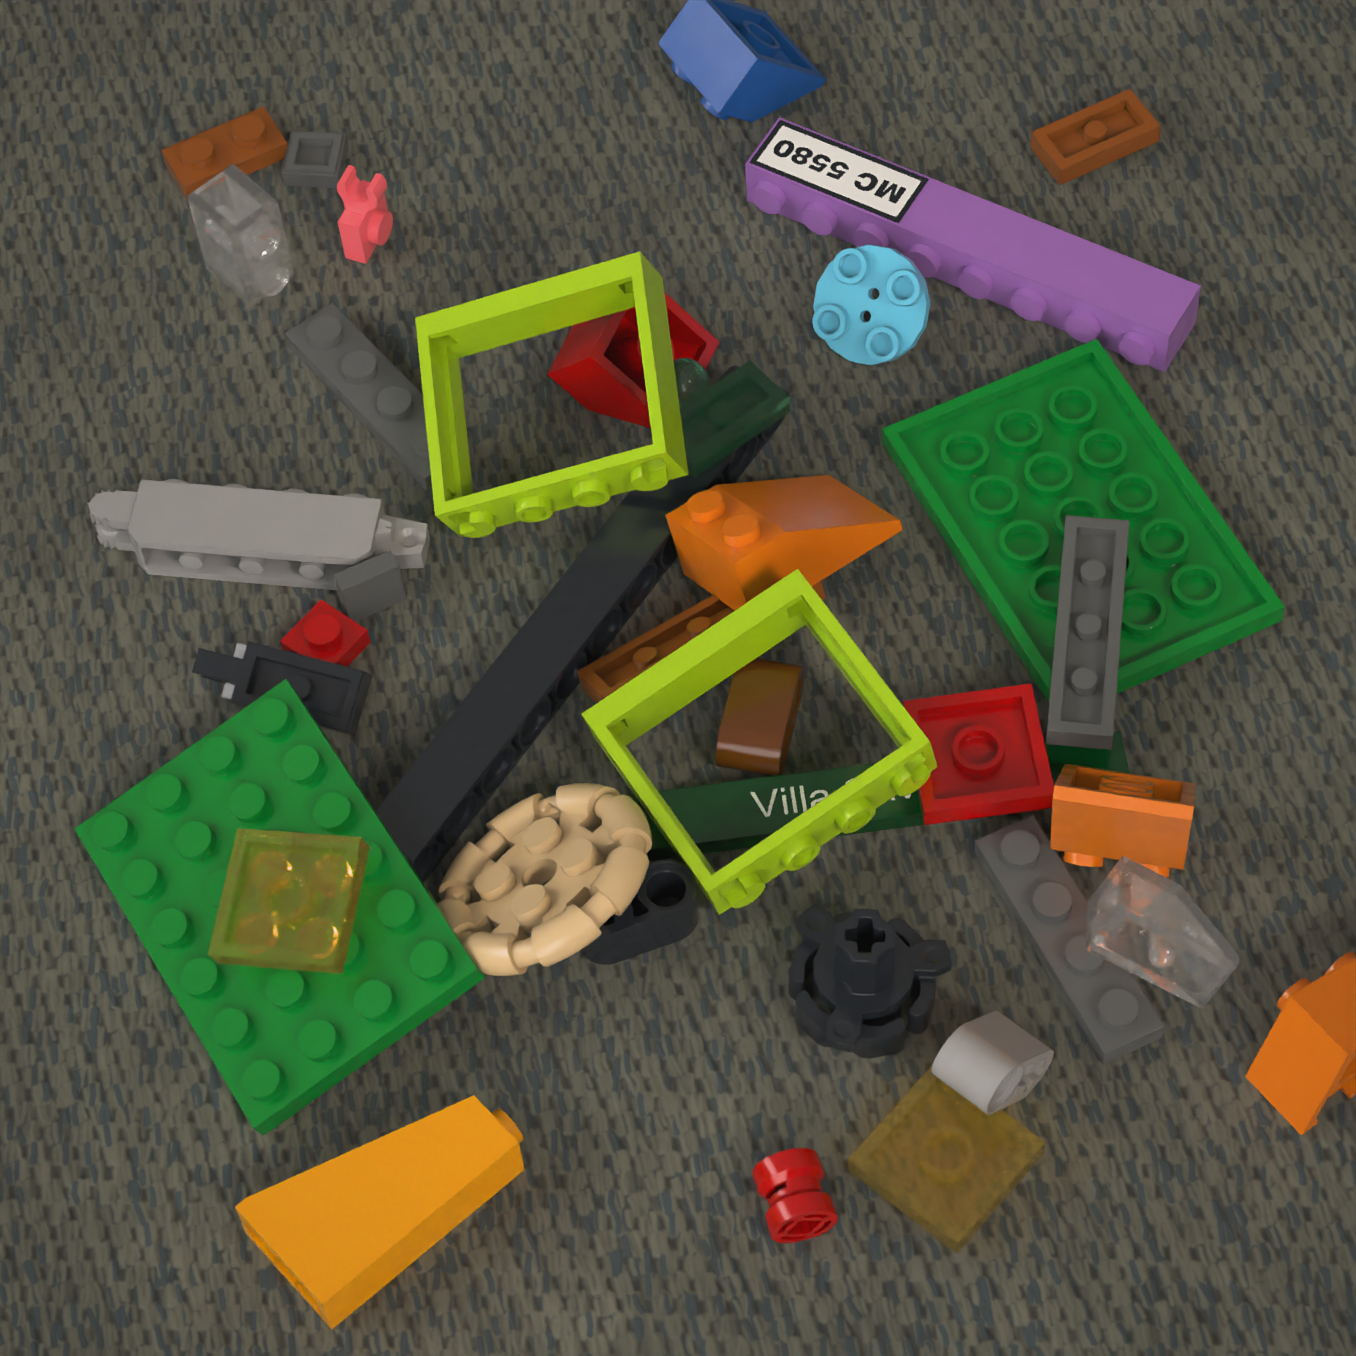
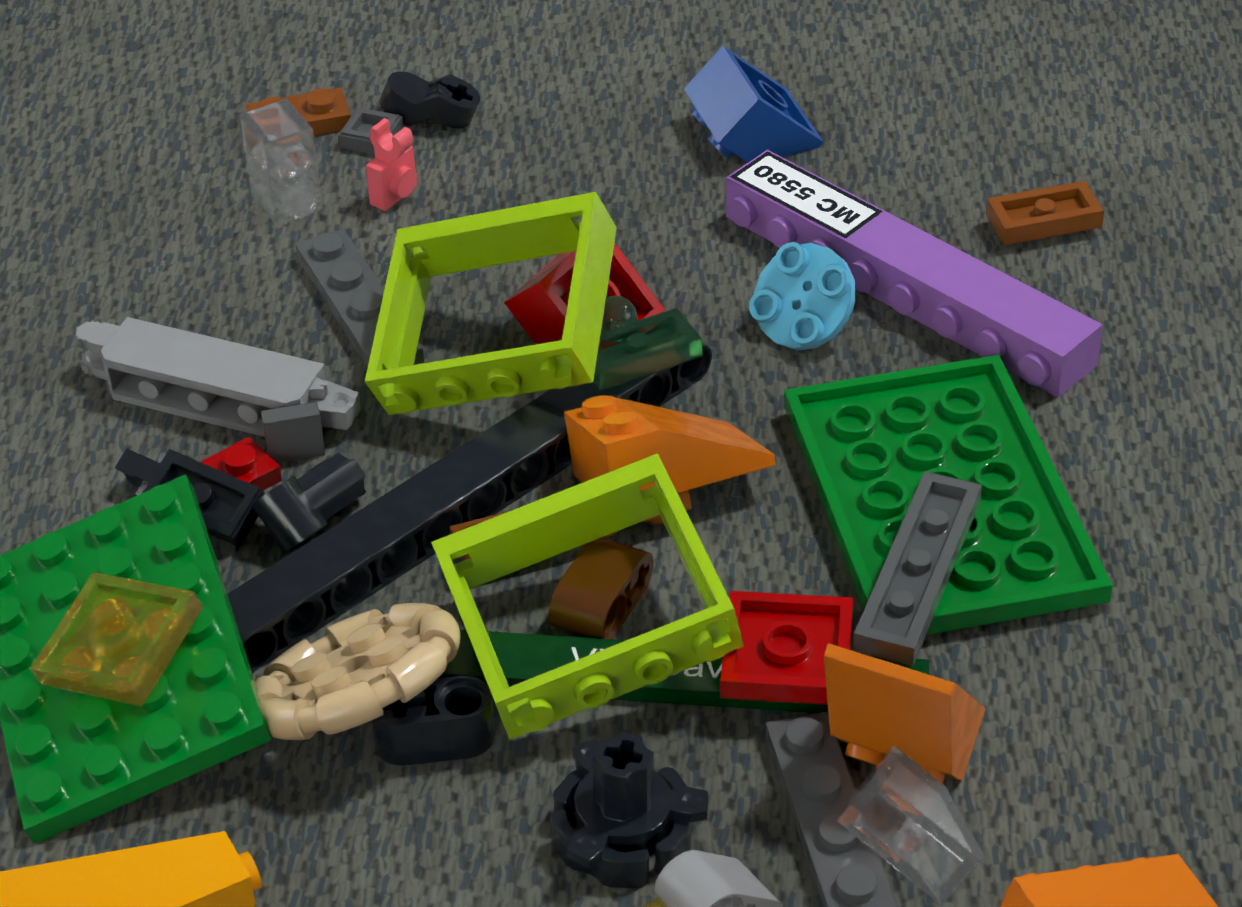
camera: 10 degrees right, 15 degrees down
(383, 103) = (443, 99): none -> black piece
(411, 680) = (303, 504): none -> black piece

